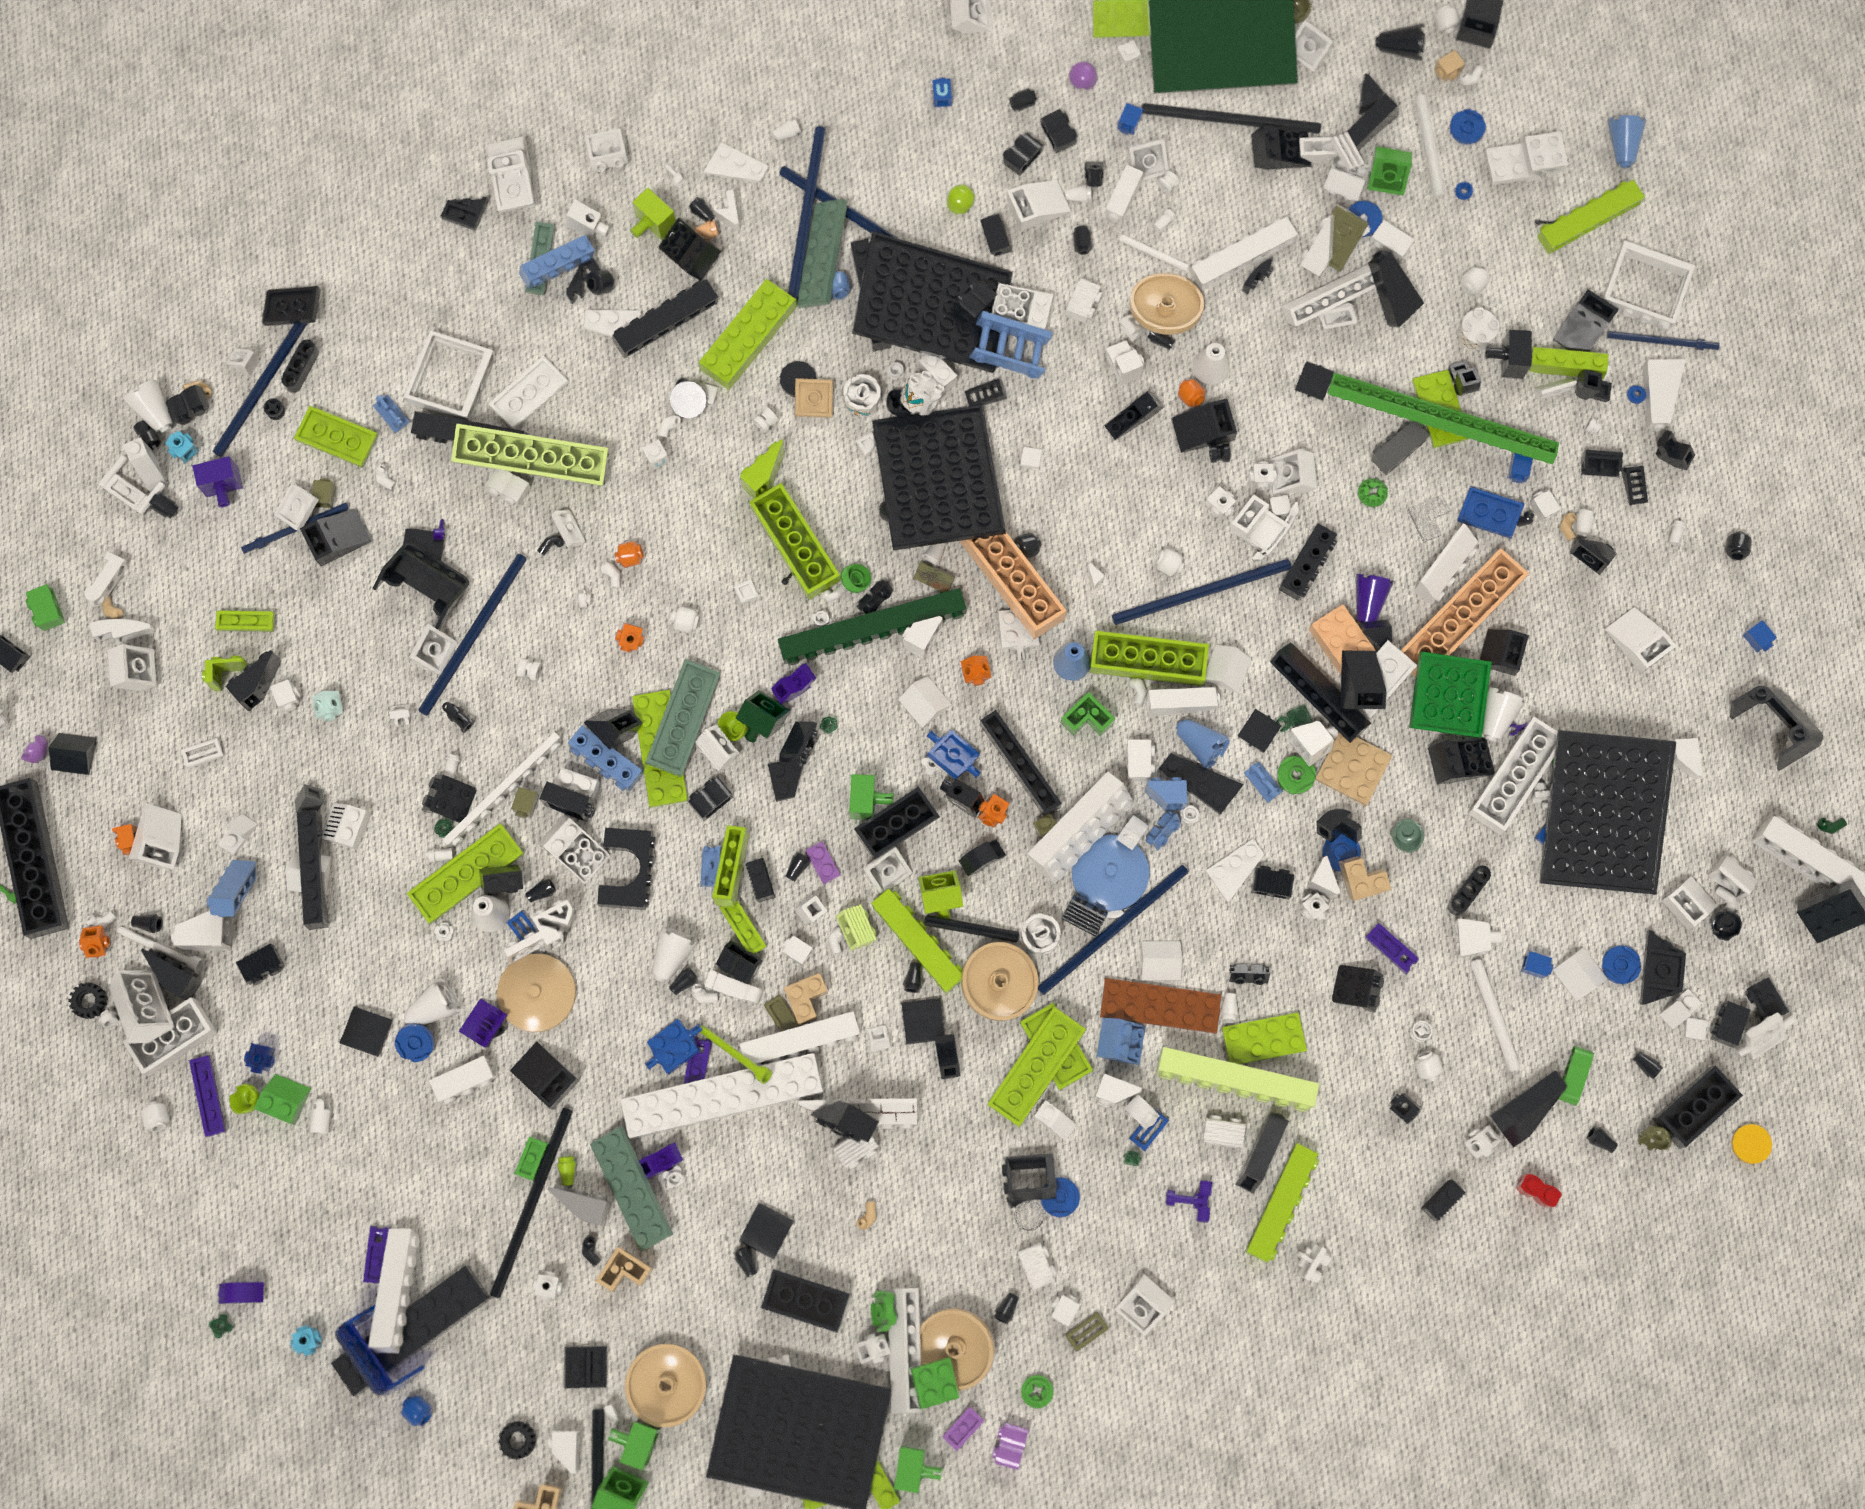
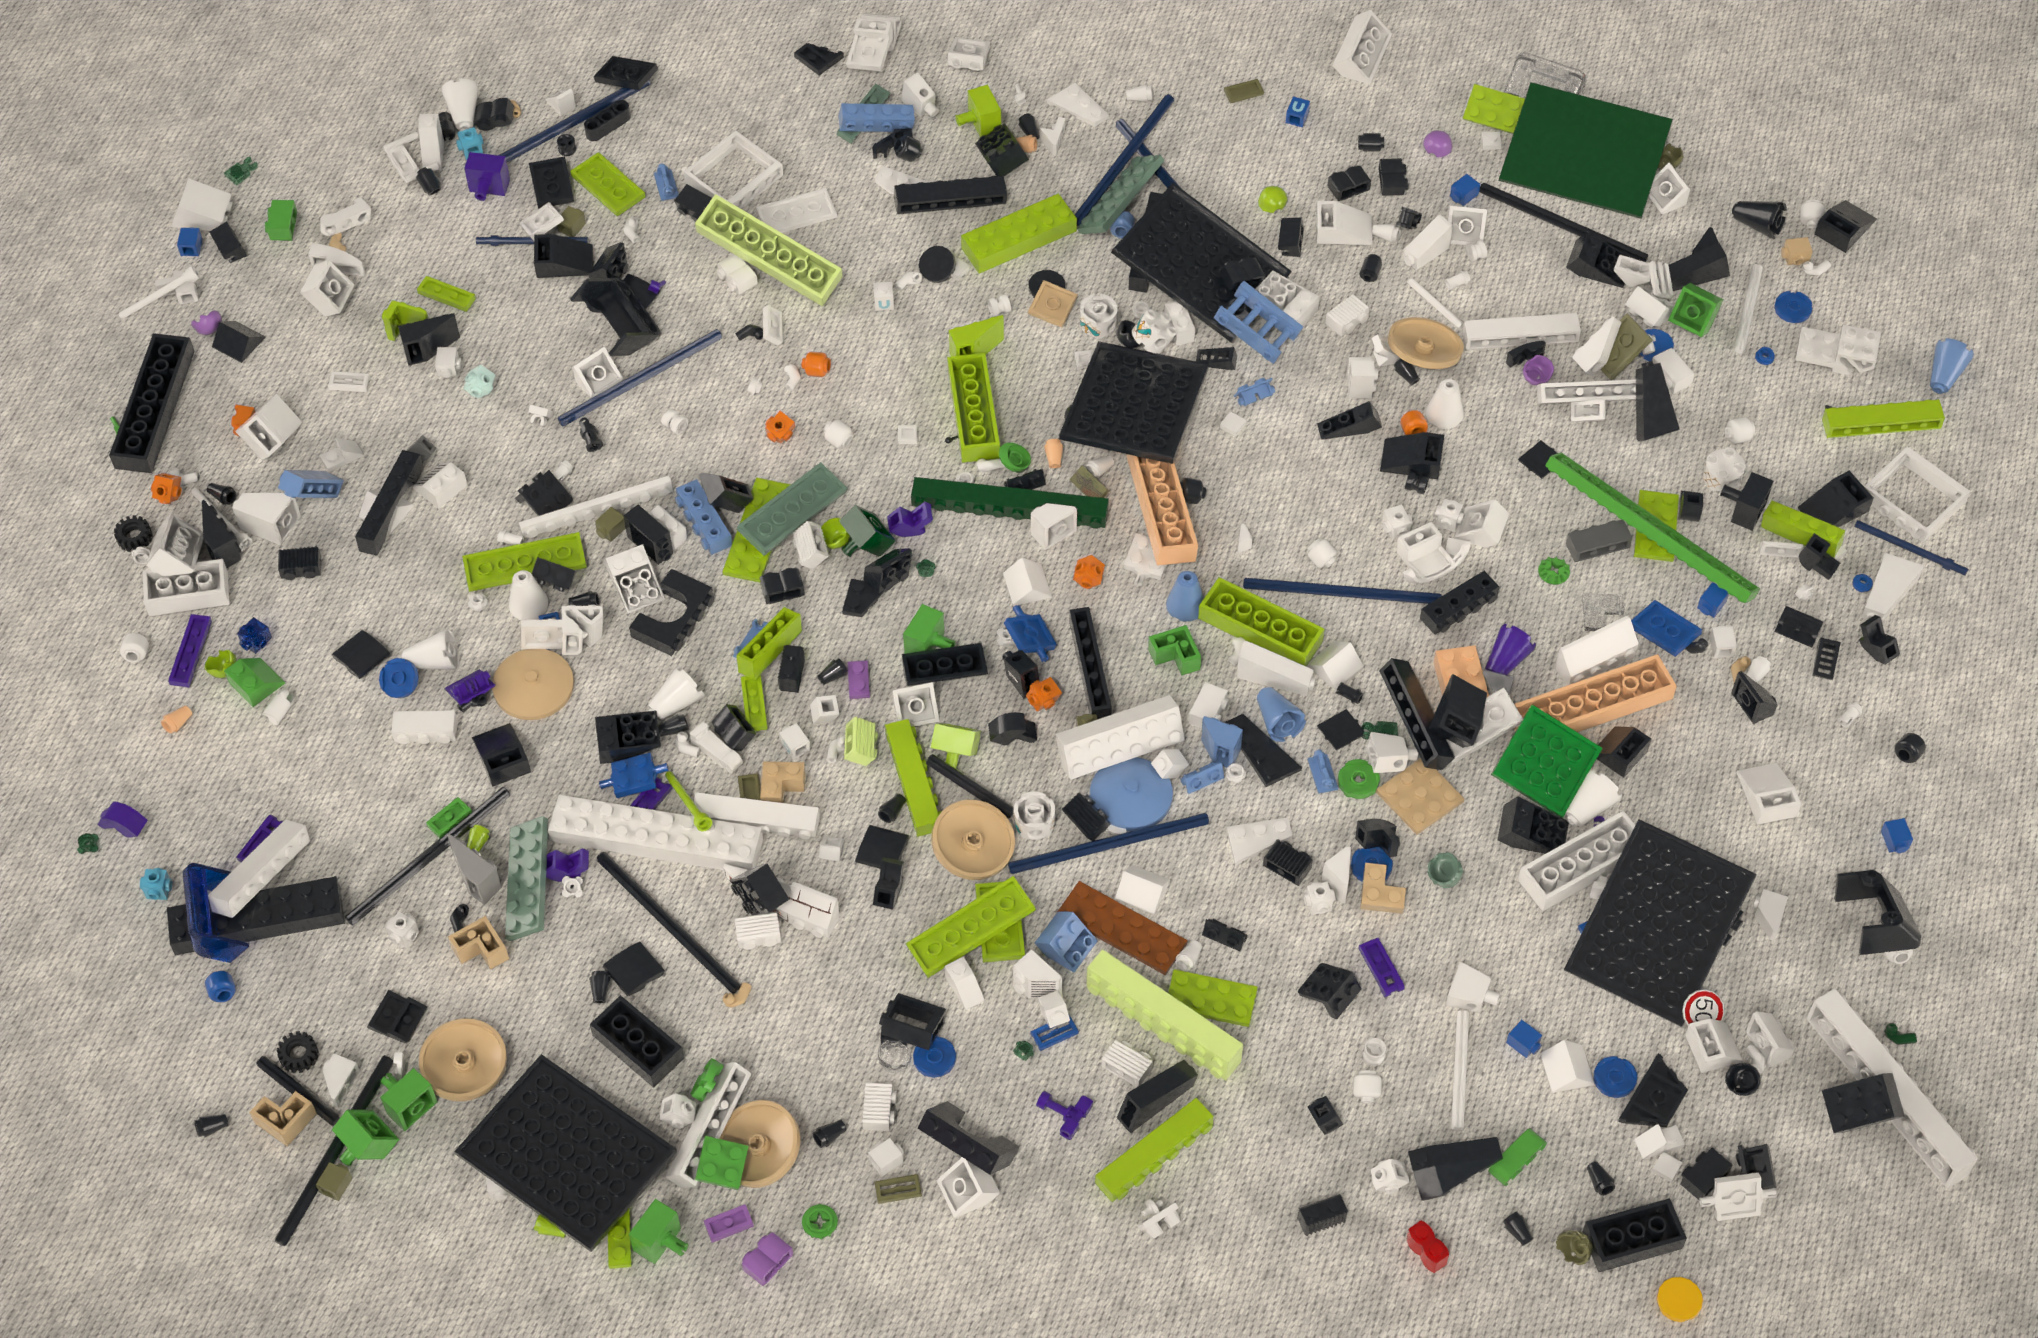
camera: 25 degrees right, 20 degrees down
(233, 1170) = (174, 721): none -> light nougat cone
(281, 456) = (551, 182): none -> black plate
(385, 531) = (611, 263): none -> black slope
(443, 823) = (524, 514): clear green plate -> none
(535, 1474) = (292, 1085): none -> black axle
(649, 1011) = (626, 735): none -> black slope
(773, 1173) = (668, 922): none -> black axle
(880, 87) = (1244, 91): none -> olive tile
(887, 557) = (1054, 452): none -> light nougat cone
(1040, 410) = (1261, 388): none -> medium blue hinge
(1106, 1272) = (943, 1126): none -> black arch
(1252, 692) = (1350, 693): none -> black pin
(1276, 285) = (1538, 366): none -> medium lavender hair
(1473, 882) = (1490, 937): black beam -> none
(1669, 874) = (1703, 1005): none -> piece

